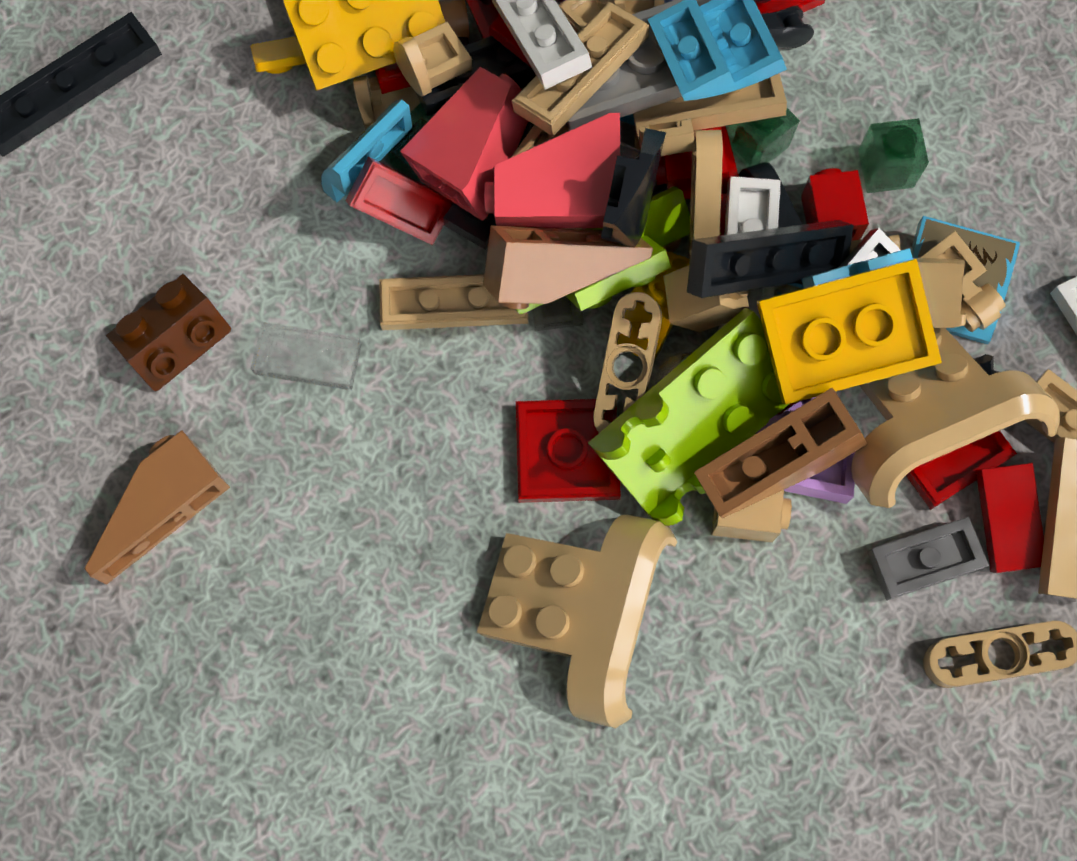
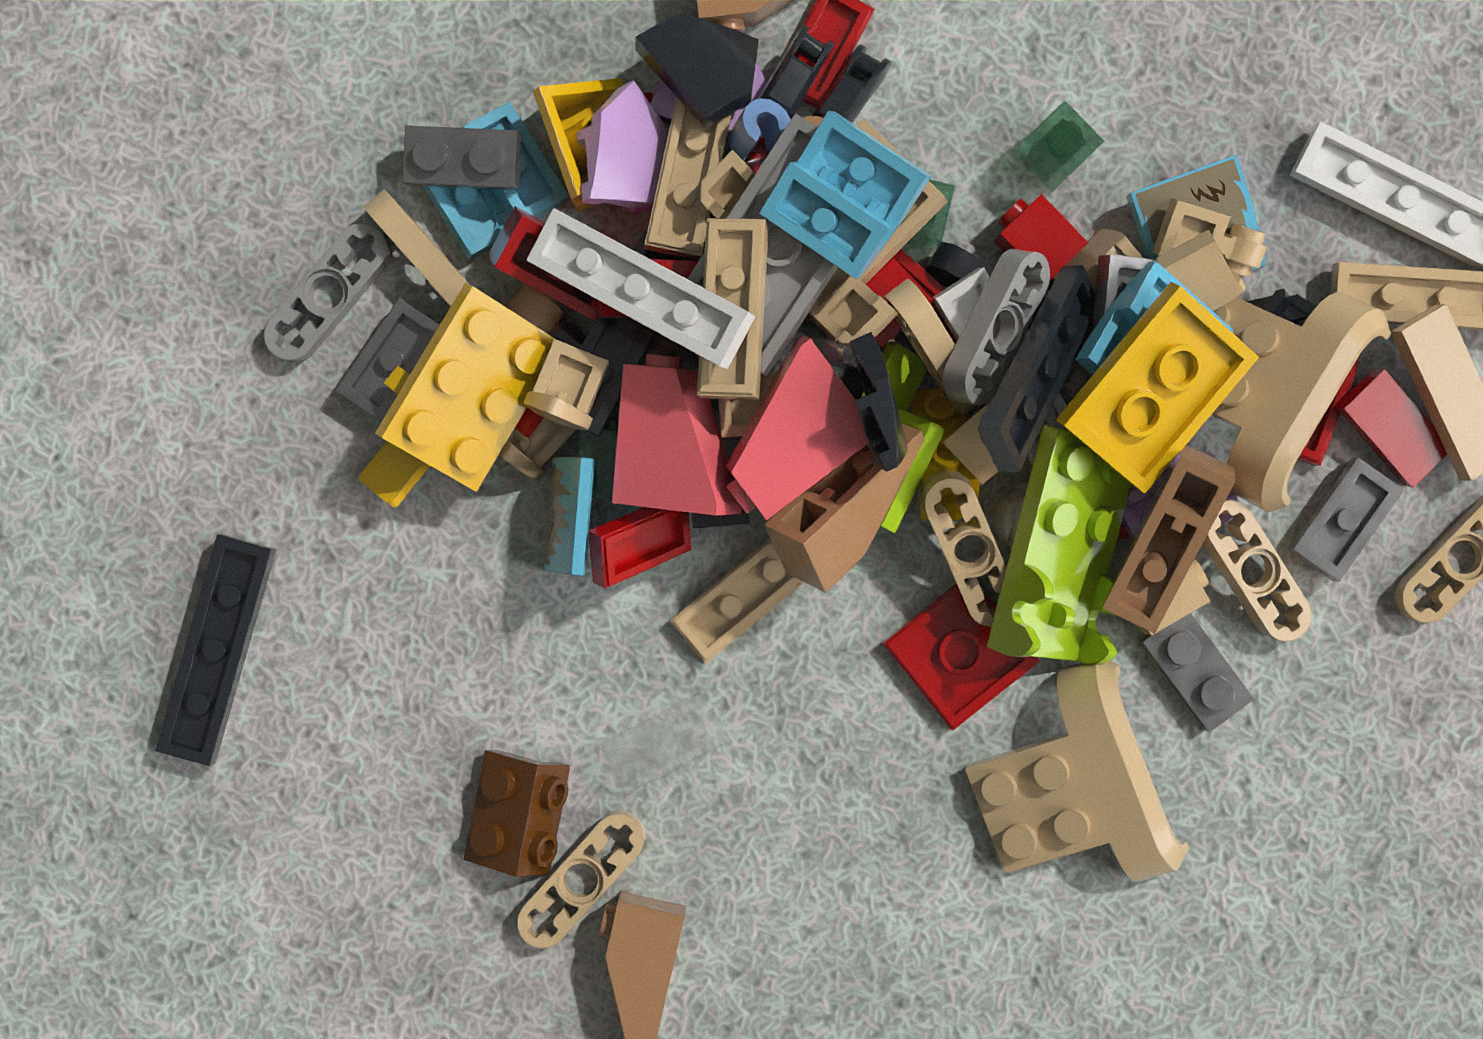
camera: 40 degrees left, 15 degrees up
(138, 428) = (542, 900): none -> tan beam
(734, 590) = (1197, 672): none -> flat silver plate
(739, 209) = (978, 359): none -> light grey beam
(846, 557) = (1275, 581): none -> tan beam

